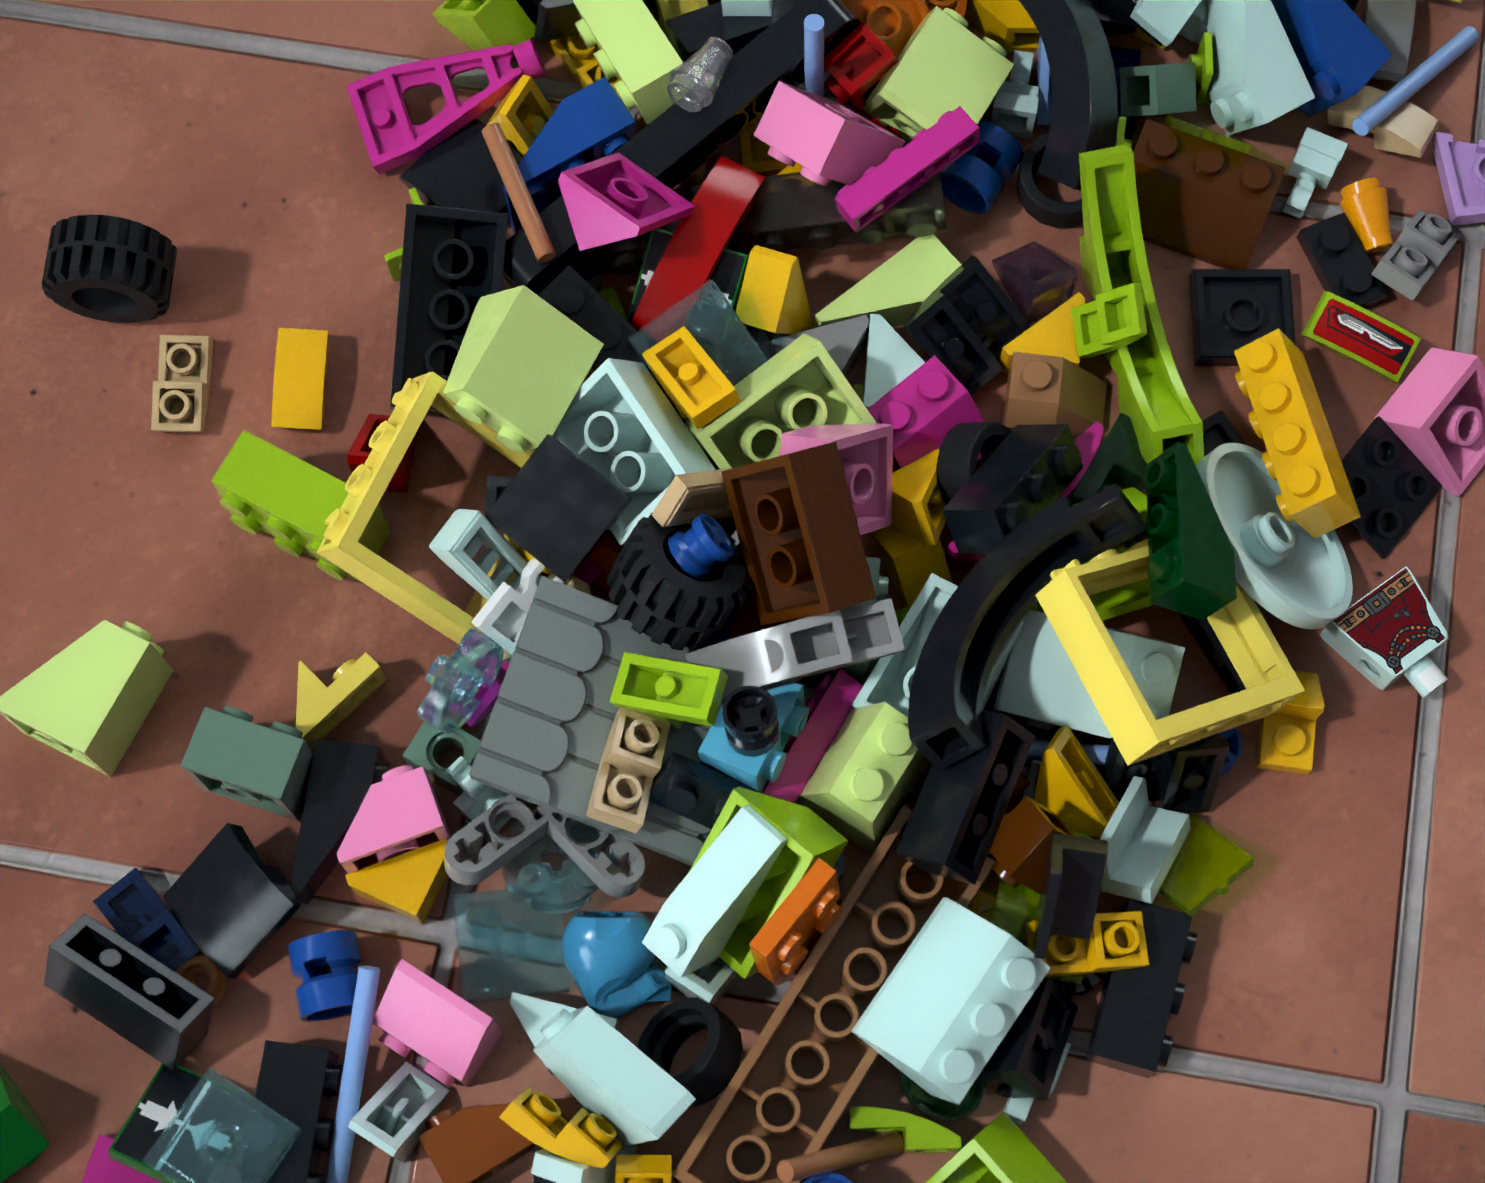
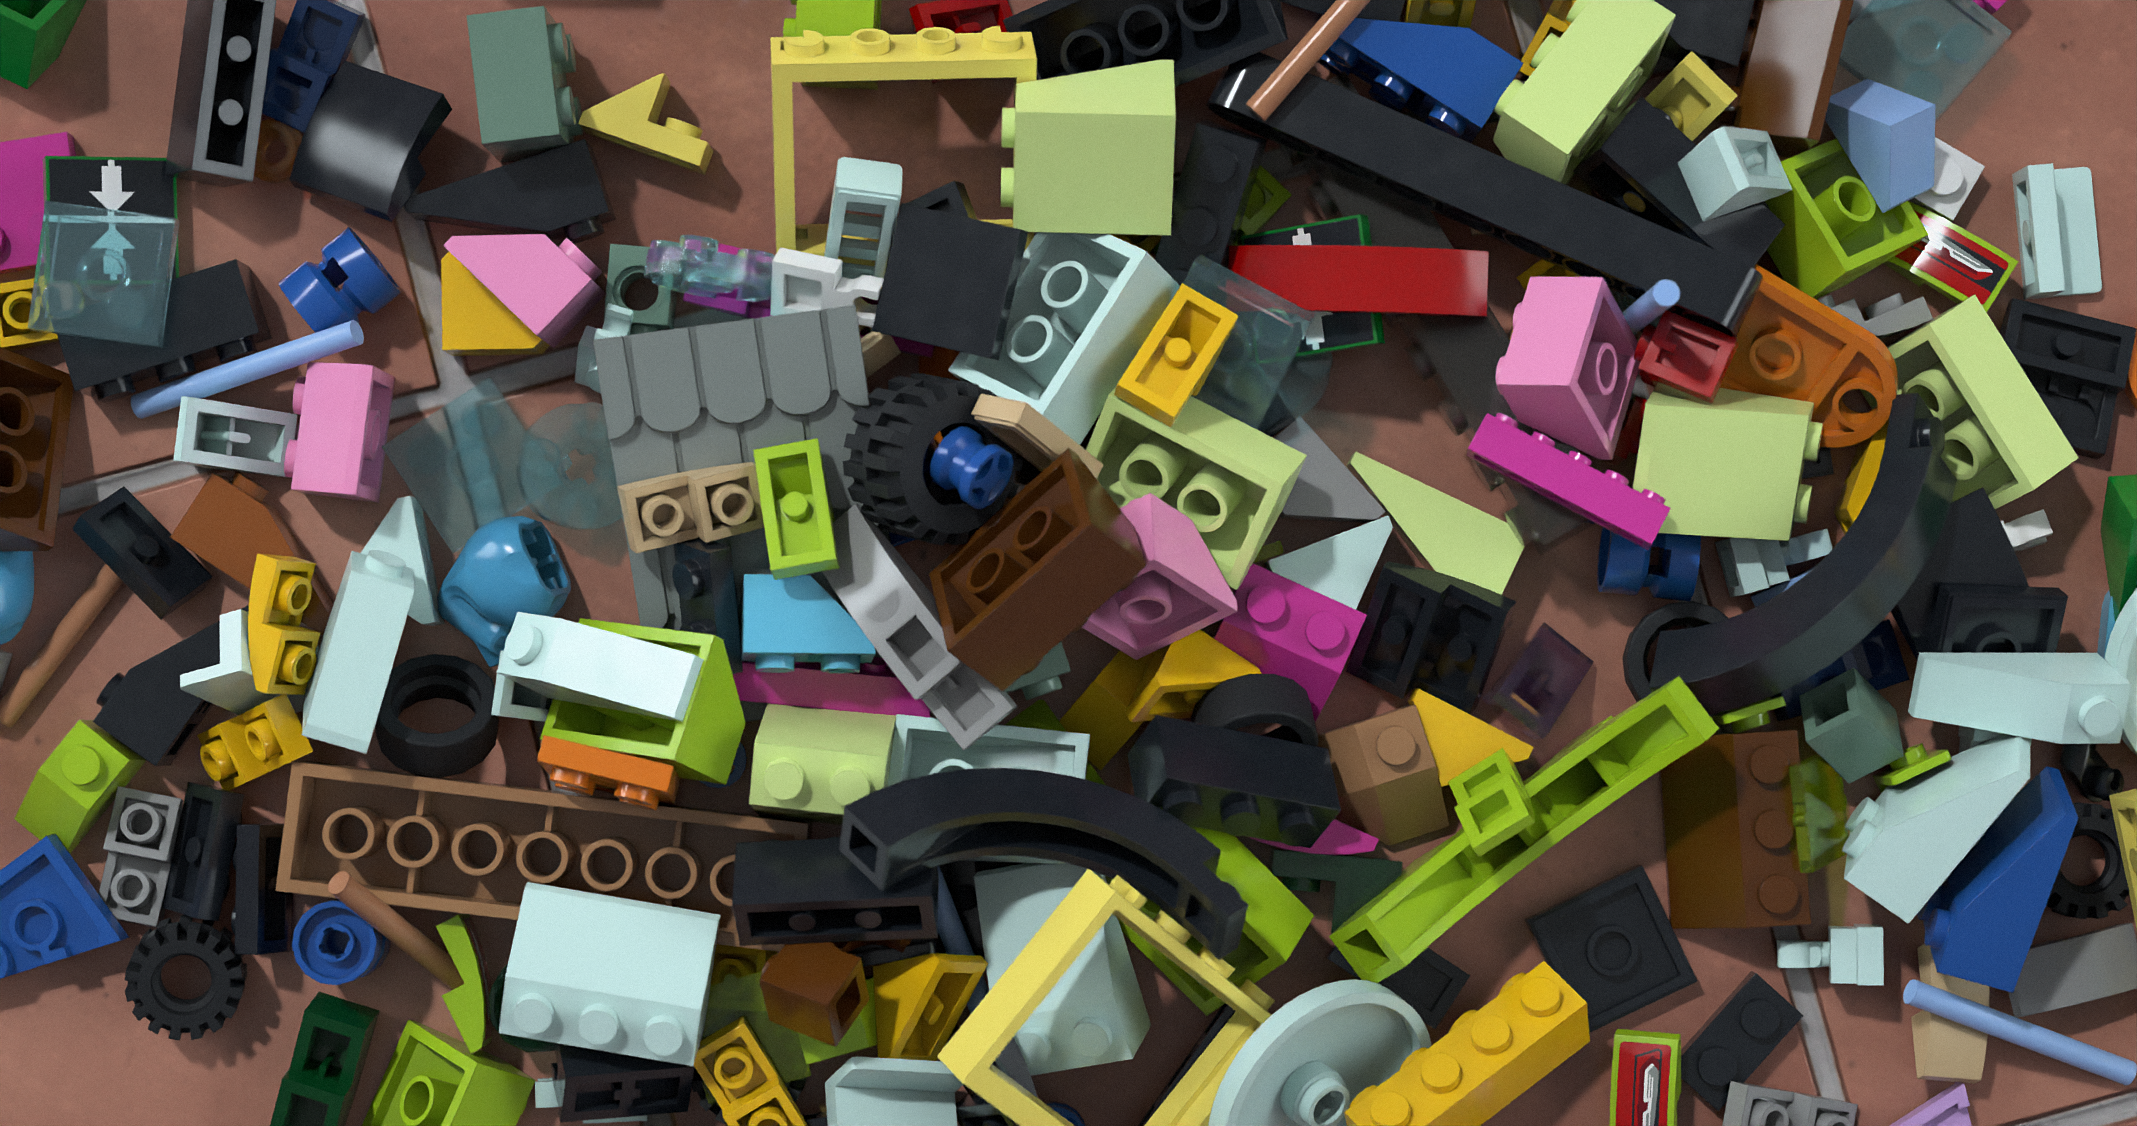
camera: 60 degrees right, 15 degrees up
(557, 826) = (533, 402): light grey beam -> none
(617, 201) = (1350, 168): dark pink slope -> none
(698, 77) = (1560, 182): clear cone -> none
(750, 709) = (798, 607): black wheel -> none
(774, 293) = (1347, 394): yellow slope -> none
(1069, 889) = (778, 1050): black panel -> none
(1188, 548) = (1231, 1013): dark green slope -> none
(1368, 213) = (1814, 1045): light orange cone -> none

